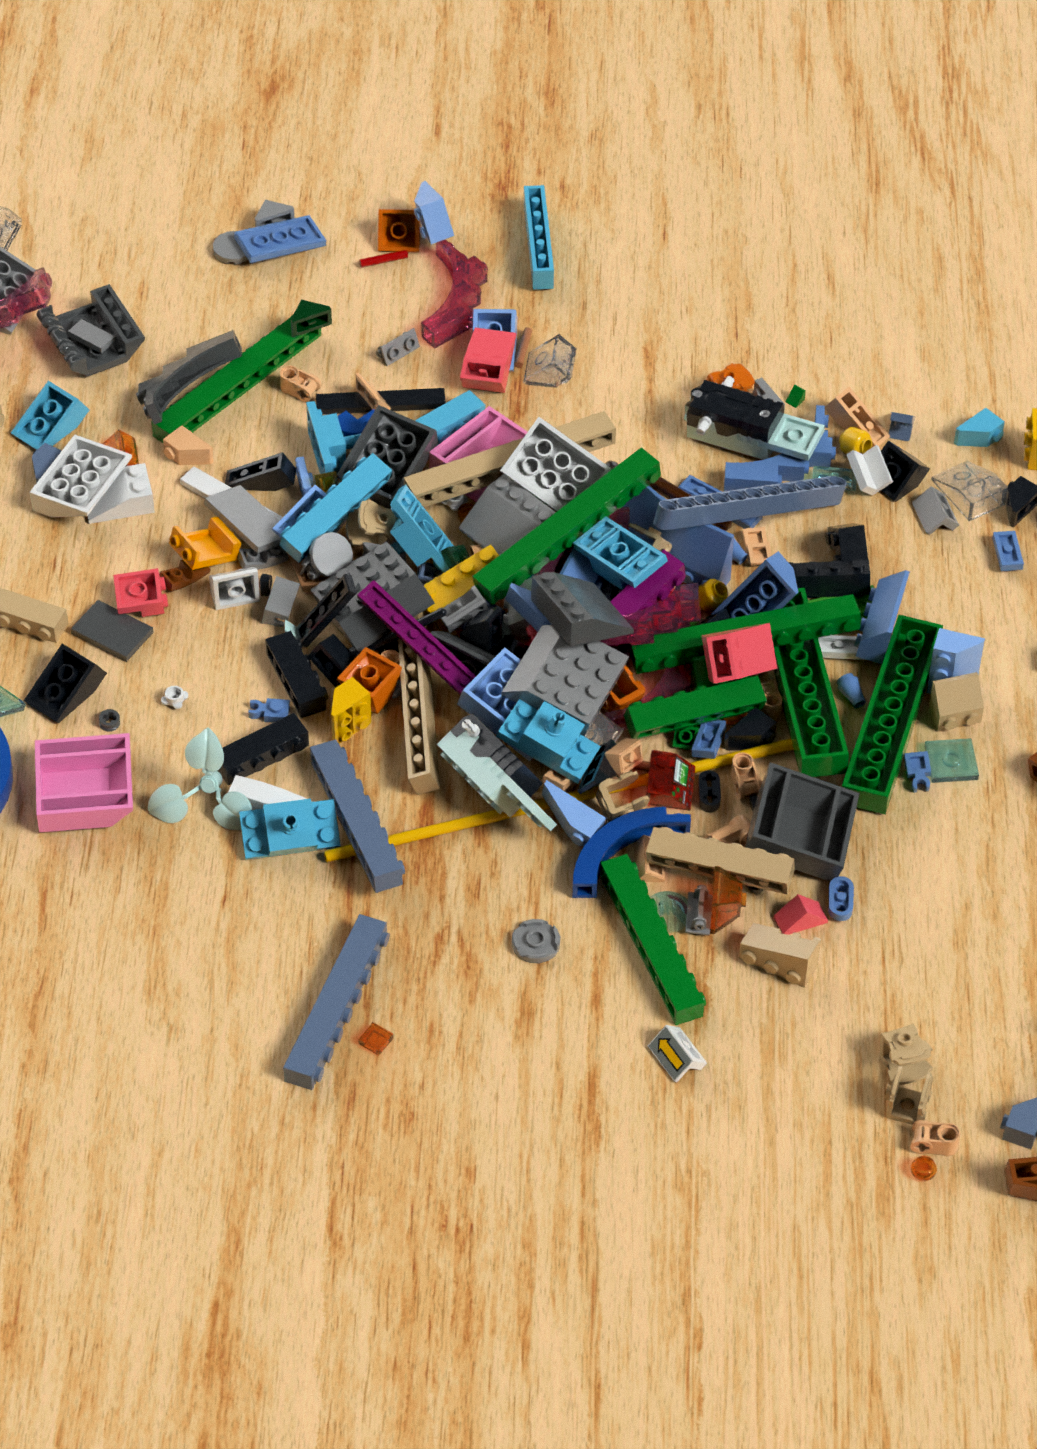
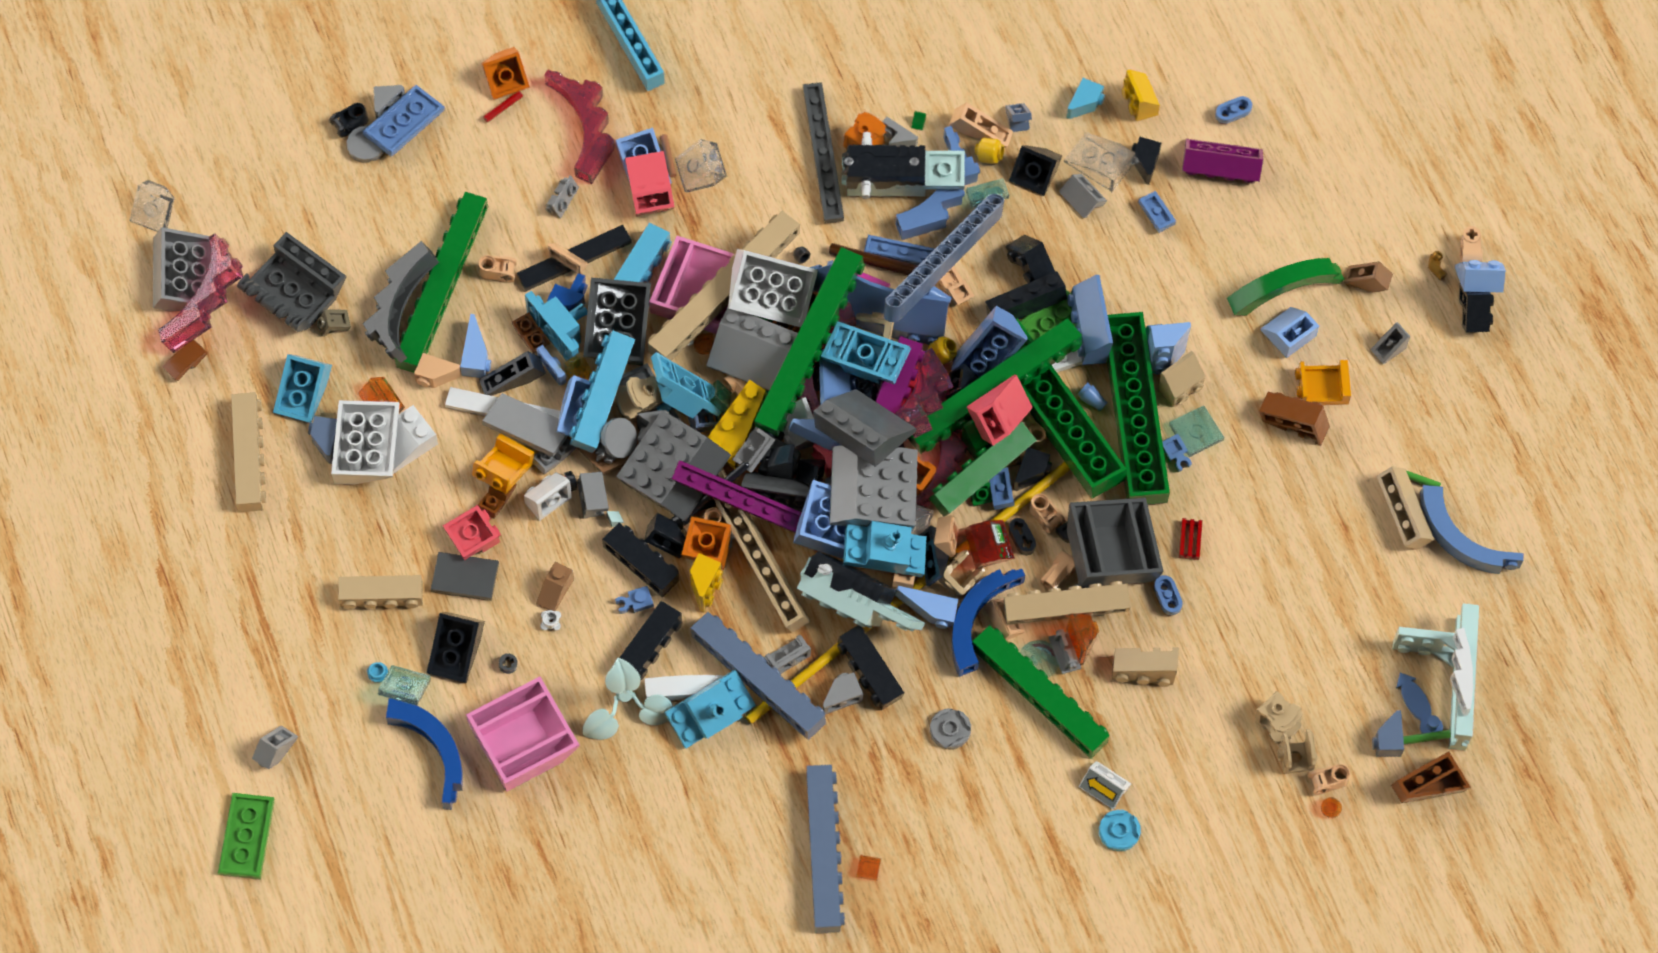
camera: 25 degrees left, 15 degrees up
(91, 336) = (295, 289): light grey tile -> none
(114, 375) = (333, 321): none -> dark tan bracket
(196, 667) = (555, 586): none -> medium nougat slope
(229, 220) = (347, 119): none -> black piece
(233, 446) = (475, 356): none -> light blue slope
(300, 446) = (530, 332): none -> dark orange slope
(310, 317) = (479, 201): dark green slope -> none
(326, 610) = (644, 495): black tile -> none
(401, 814) = (789, 655): none -> light grey hinge
(432, 214) = (533, 52): light blue slope -> none
(435, 865) = (843, 693): none -> light grey slope
(479, 850) = (870, 667): none -> black brick
(670, 1104) = (1119, 830): none -> medium azure tile
(680, 392) = (823, 153): none -> dark grey plate
(800, 915) = (1143, 623): coral slope -> none
(870, 470) = (1015, 175): white panel -> none
(901, 842) = (1191, 523): none -> red tile

